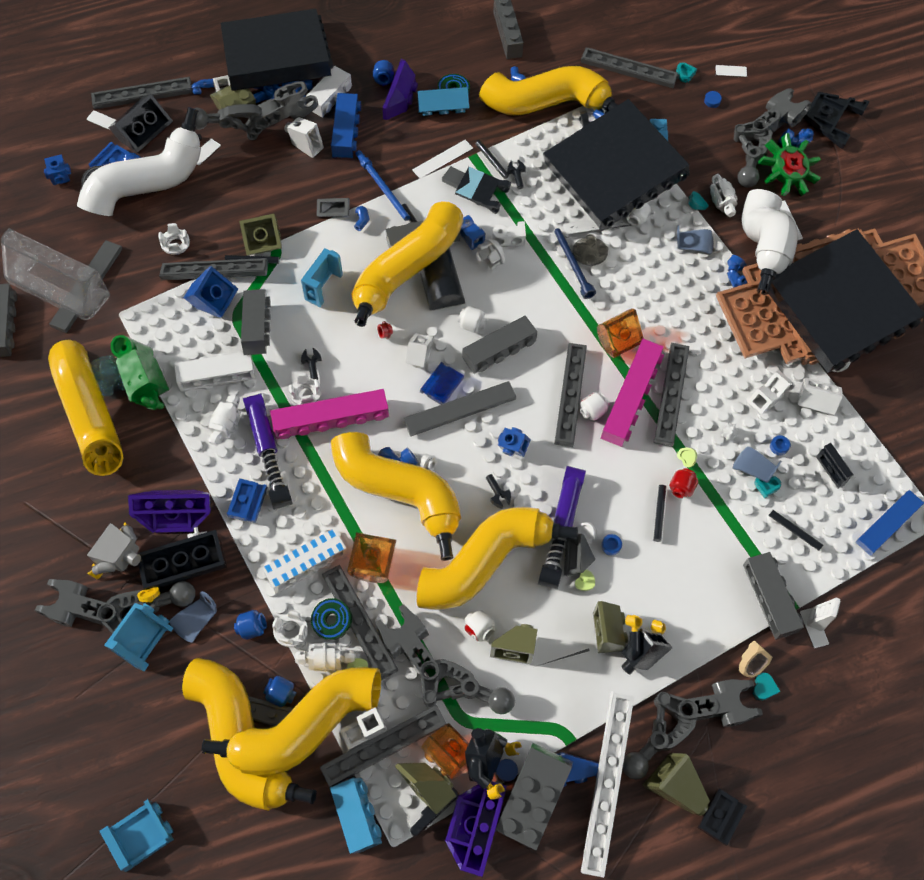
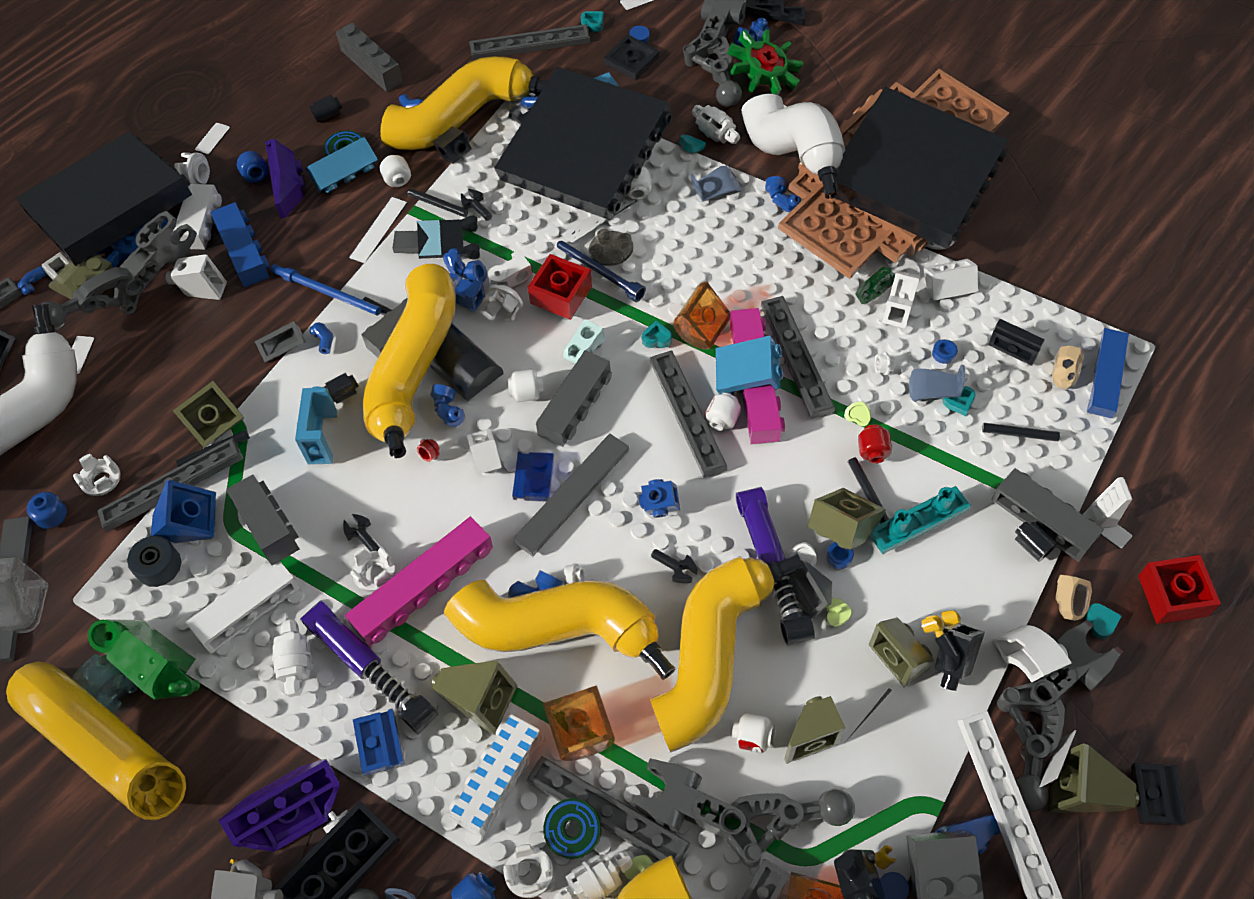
camera: 25 degrees left, 5 degrees down
(132, 247) = (46, 510): none -> blue head
(177, 314) = (154, 561): none -> black wheel
(323, 503) = (478, 691): none -> olive slope
(346, 54) = (195, 169): none -> white piece
(352, 259) = (342, 387): none -> black brick
(370, 38) = (212, 138): none -> white sticker
(412, 314) = (451, 415): none -> blue arm
(456, 52) = (325, 108): none -> black brick
(476, 122) = (395, 171): none -> white head
(485, 221) = (472, 271): none -> blue arm
(527, 121) = (452, 144): none -> black brick
(531, 308) = (584, 340): none -> light aqua leg
(536, 261) = (560, 286): none -> red brick
(583, 330) = (656, 335): none -> teal tile
(629, 383) = (748, 365): none -> dark azure panel
(629, 521) = (845, 518): none -> olive slope
(666, 755) = (1057, 759): none -> white sticker
(681, 550) = (919, 519): none -> teal plate
(696, 114) = (631, 57): none -> black tile
(696, 678) = (1032, 651): none -> white brick
(752, 608) = (1035, 540): none -> black brick
(759, 372) = (875, 285): none -> dark green hinge
(832, 696) = (1179, 589): none -> red brick
(861, 502) = (1067, 366): none -> tan rock

